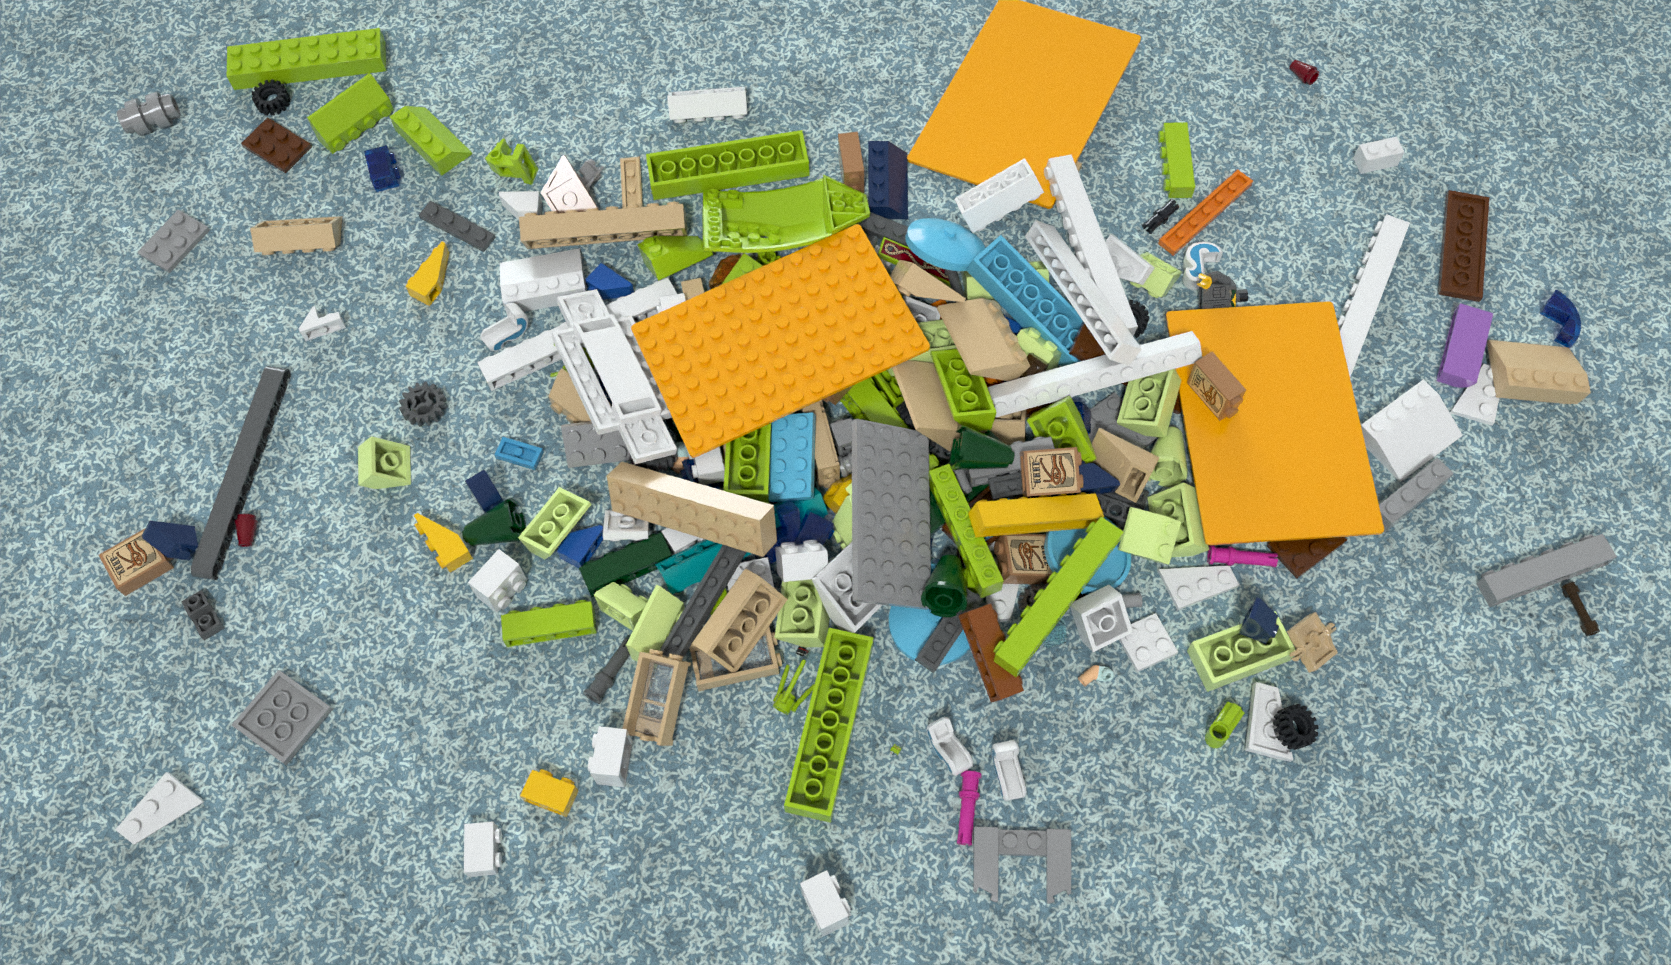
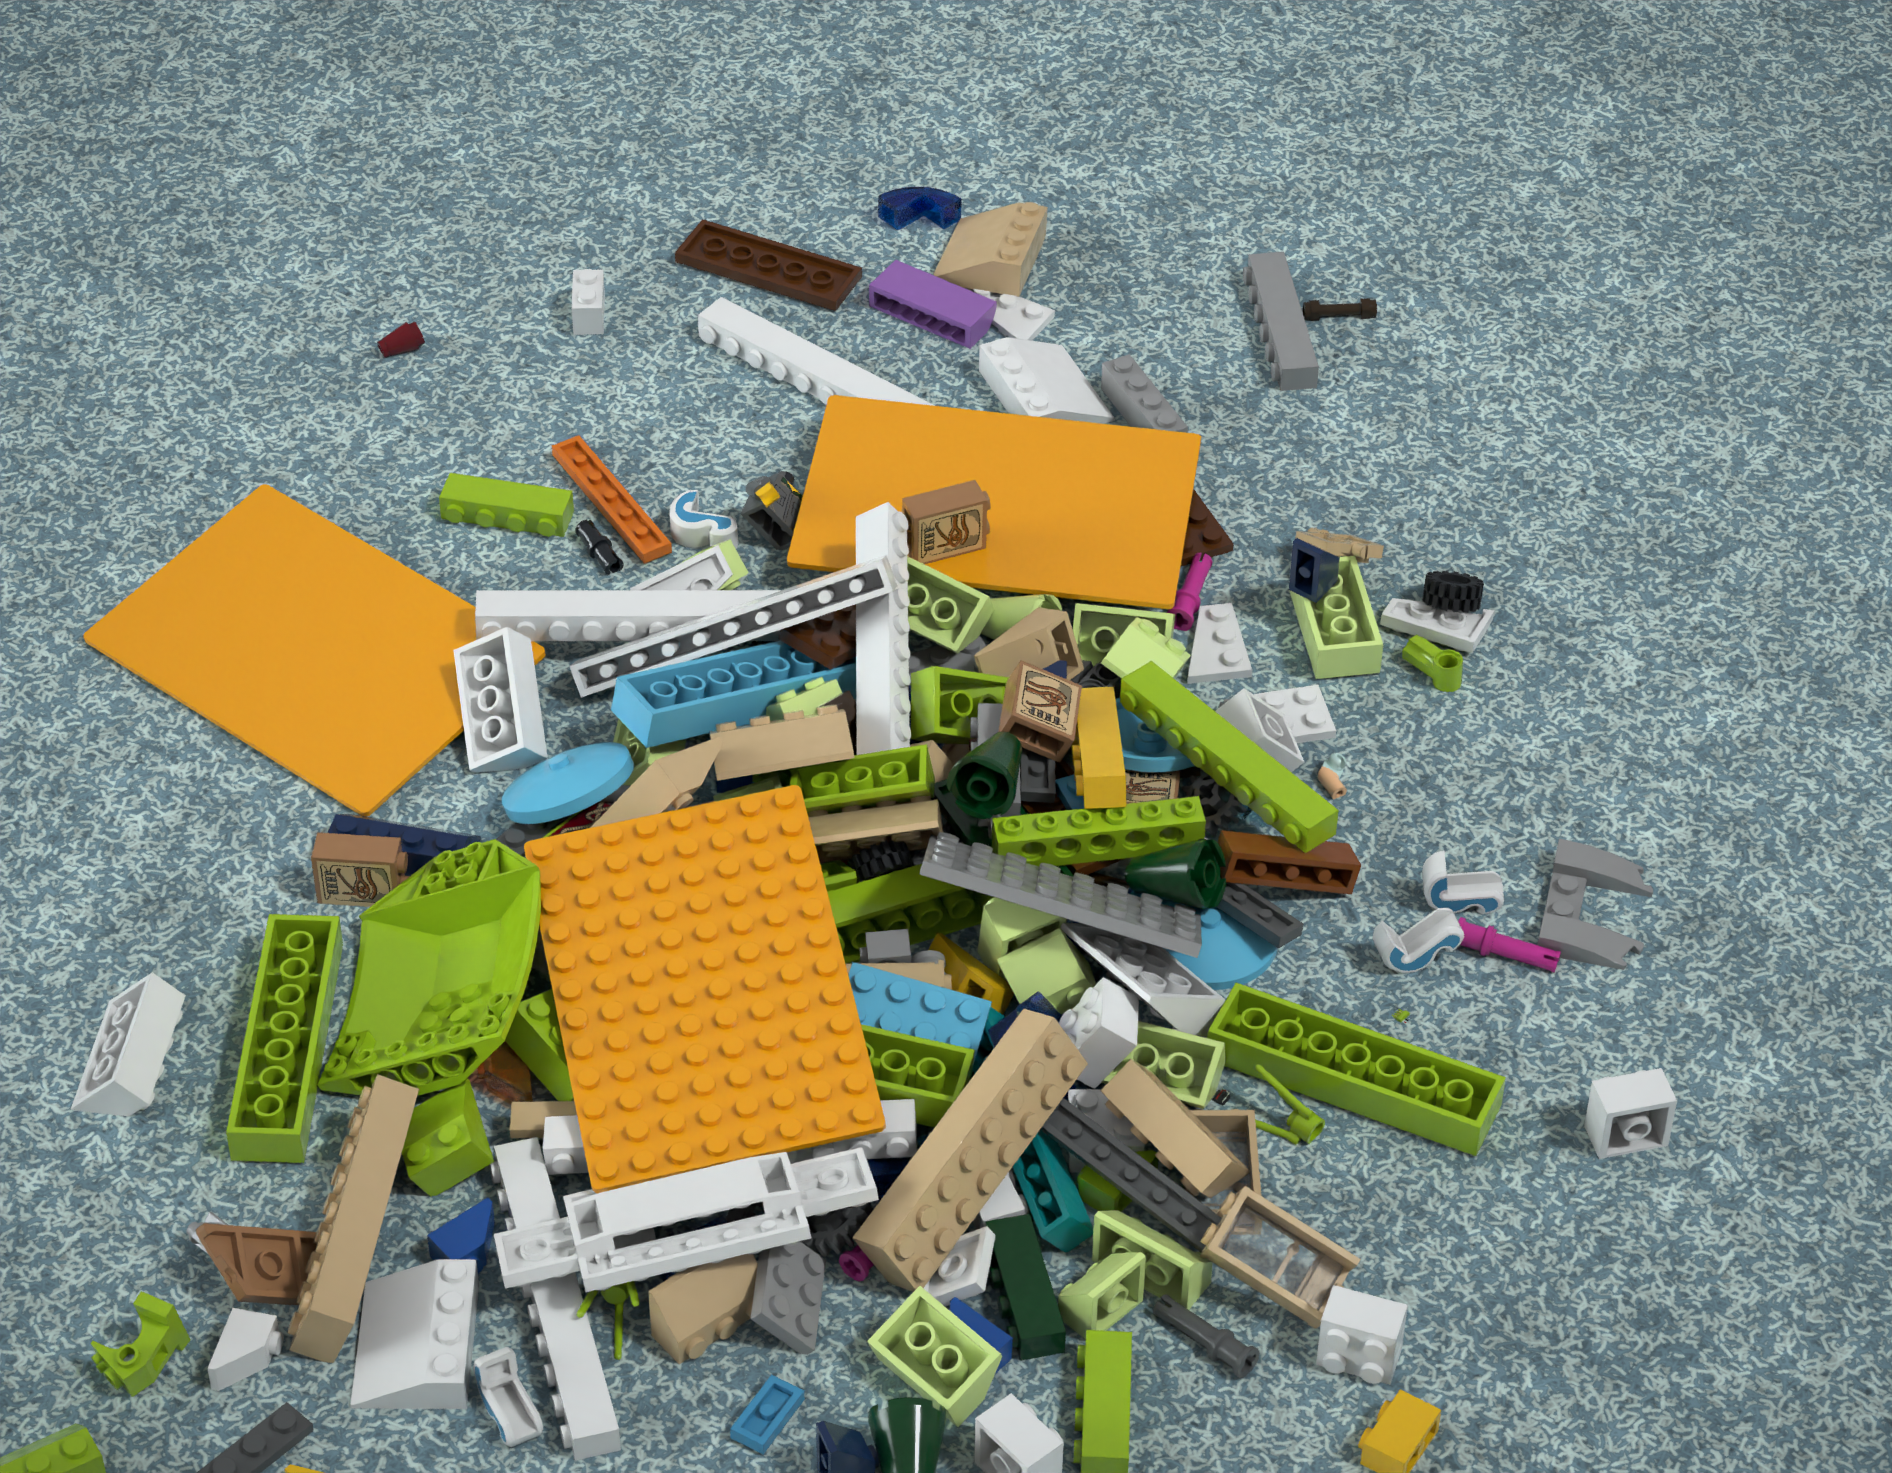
camera: 80 degrees left, 20 degrees down
(631, 181) = (262, 1189): tan tile -> none

